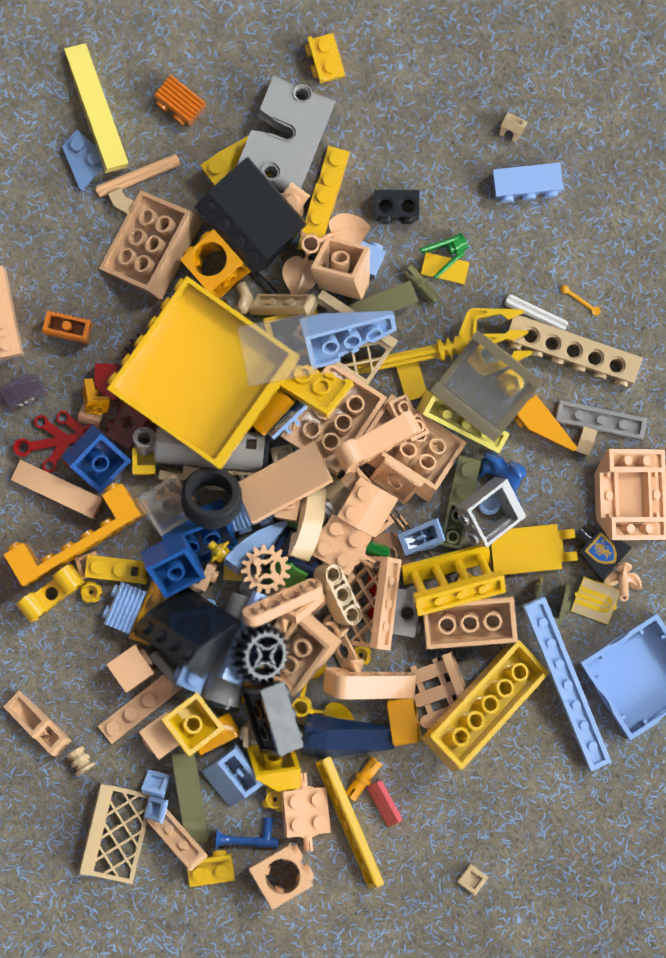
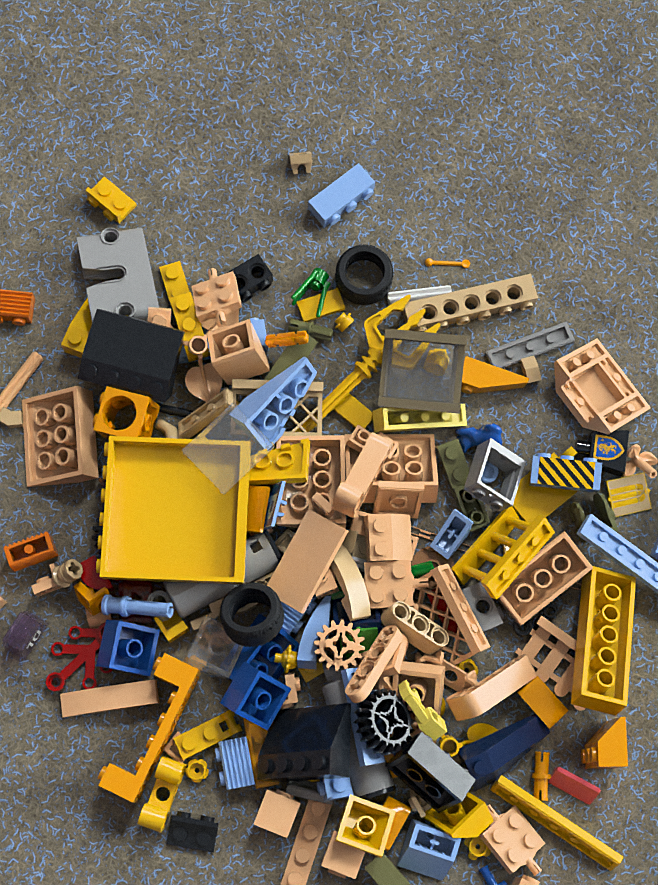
camera: 40 degrees left, 10 degrees down
(56, 638) = (192, 832): none -> black bracket
(63, 362) = (45, 584): none -> light nougat bracket
(85, 365) = (67, 573): none -> tan bush
(116, 425) = (126, 606): none -> light blue pin
(296, 674) = (426, 718): none -> light yellow piece
(327, 446) = (322, 505): none -> light nougat tile
(356, 207) = (216, 297): none -> light nougat plate
(392, 282) = (286, 339): none -> light orange axle
(427, 791) = (607, 746): none -> light orange slope
(454, 296) = (343, 321): none -> yellow plate
(499, 242) = (358, 295): none -> black tyre
(551, 548) = (565, 473): none -> brick

